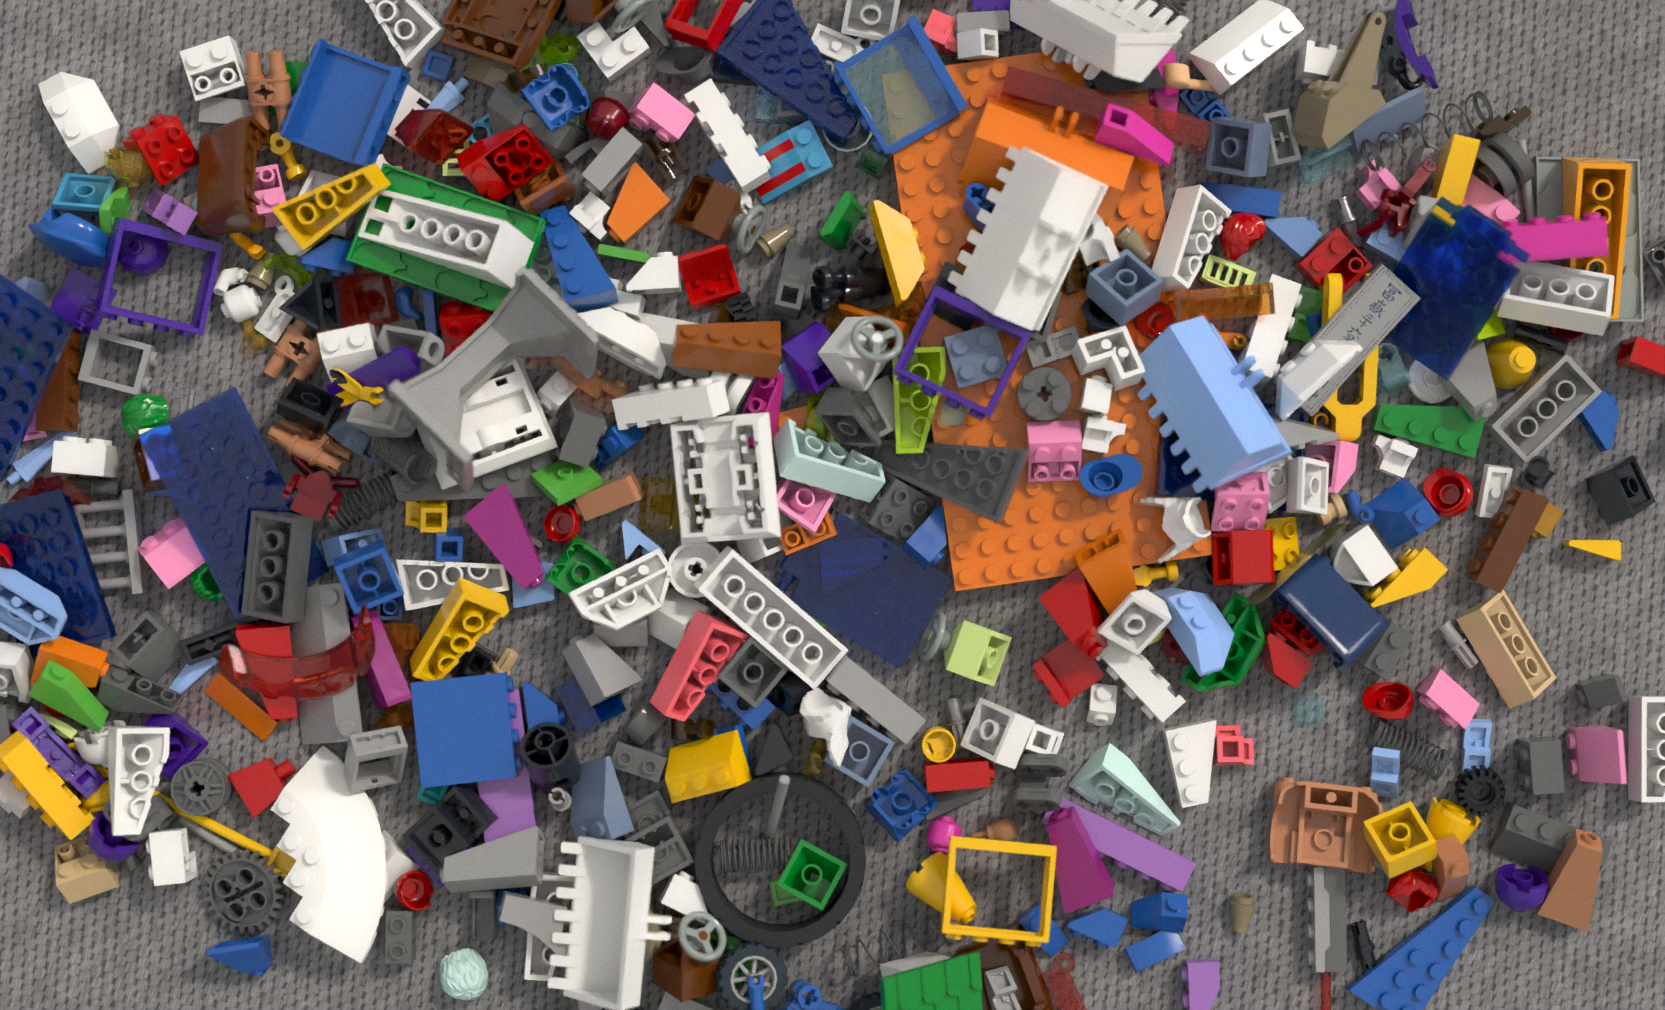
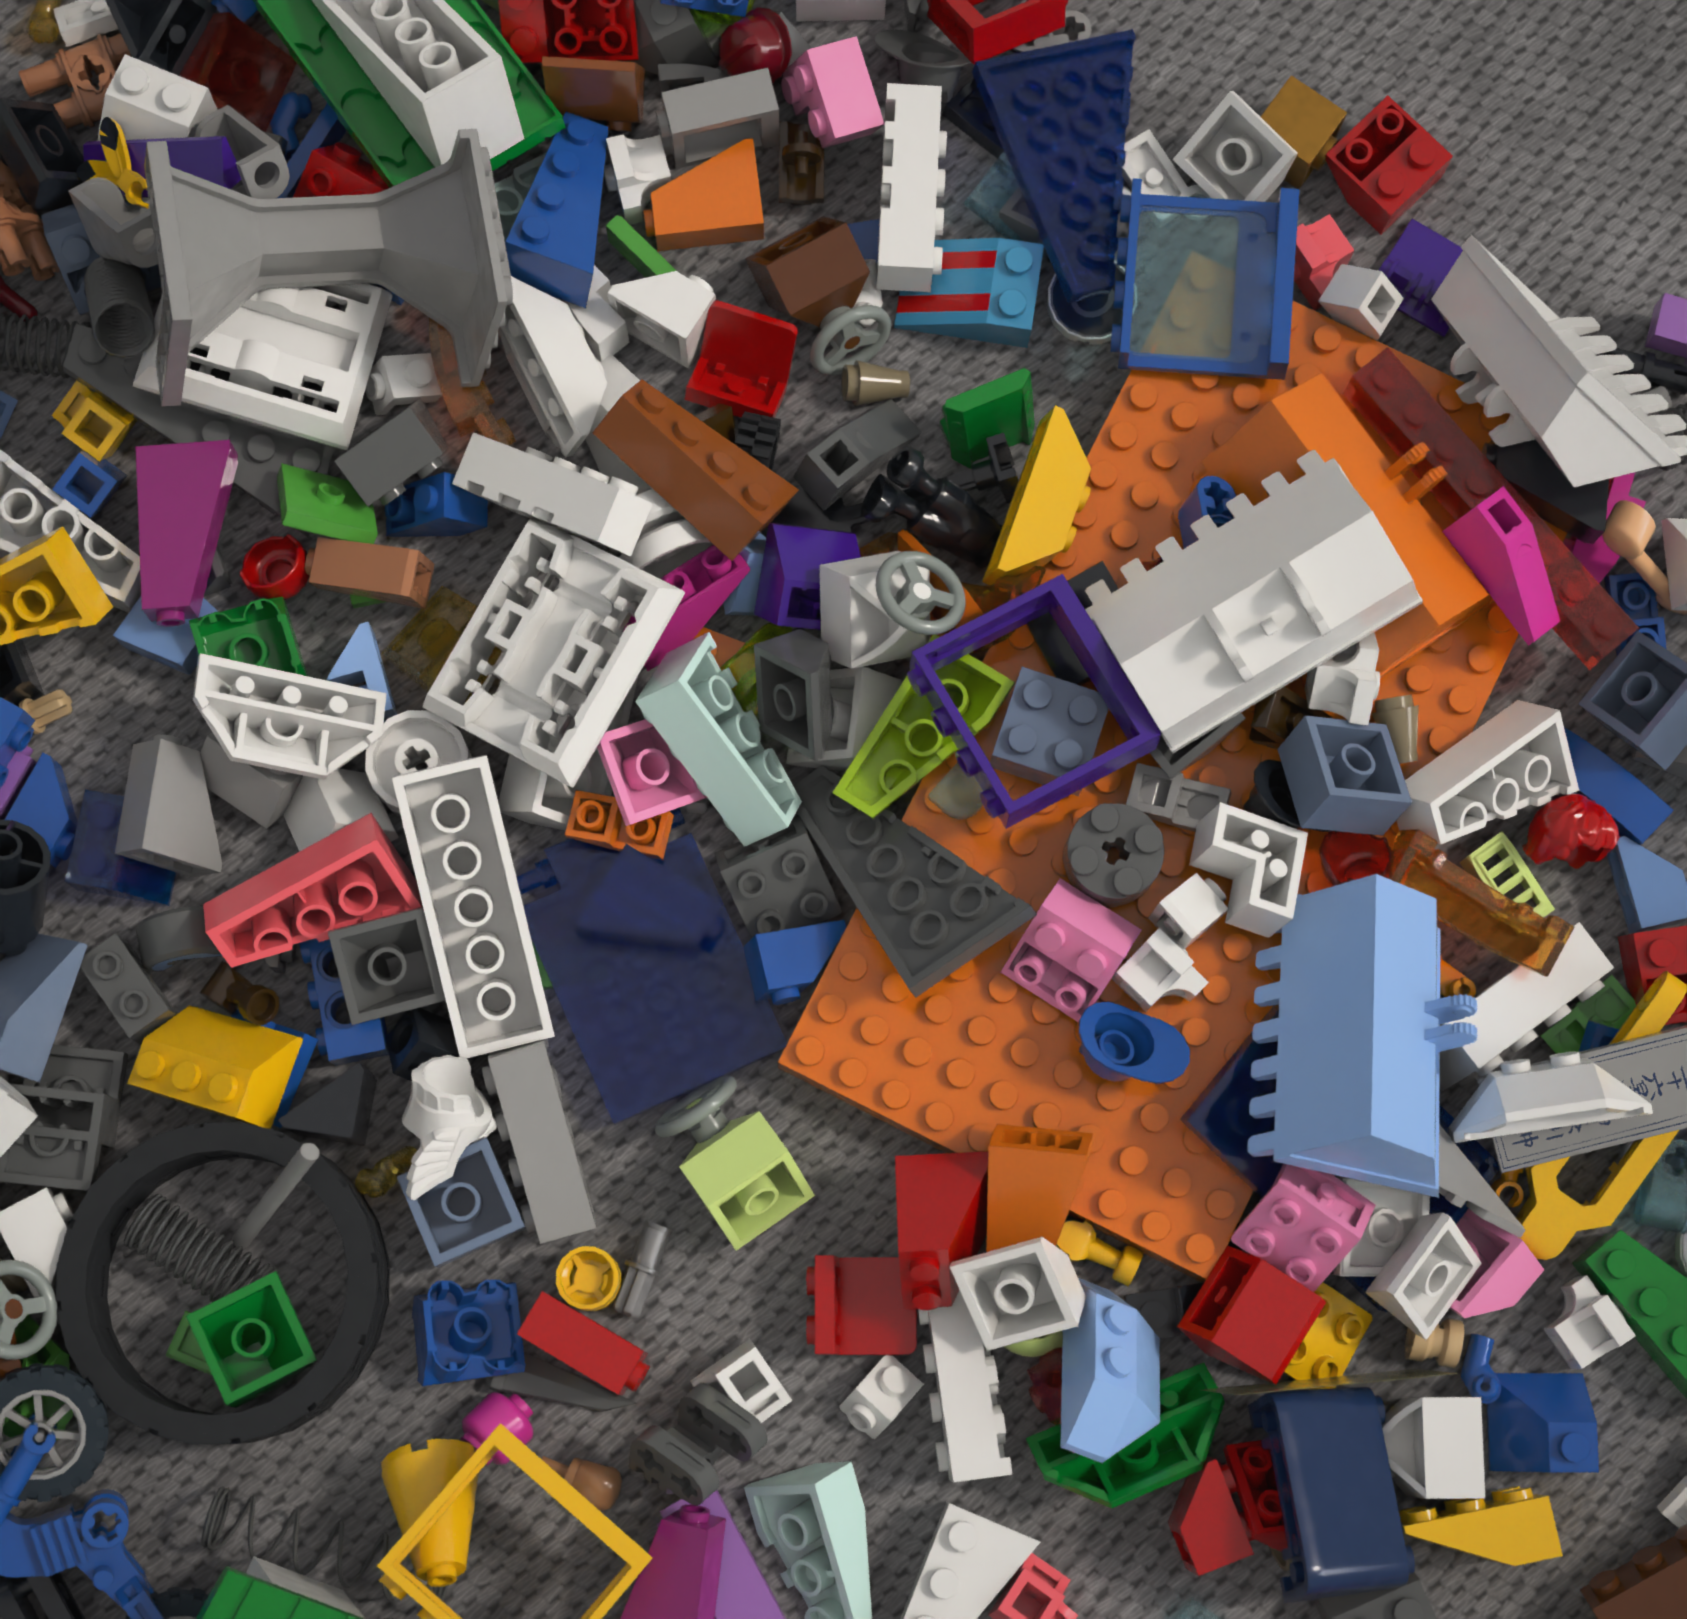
camera: 30 degrees right, 10 degrees down
(872, 163) = (1093, 367): clear green slope -> none
(987, 20) = (1411, 284): light grey slope -> none
(997, 733) = (689, 1324): white brick -> none
(1180, 522) = (1192, 1188): white helmet -> none
(1448, 492) = (1637, 1441): red hat -> none

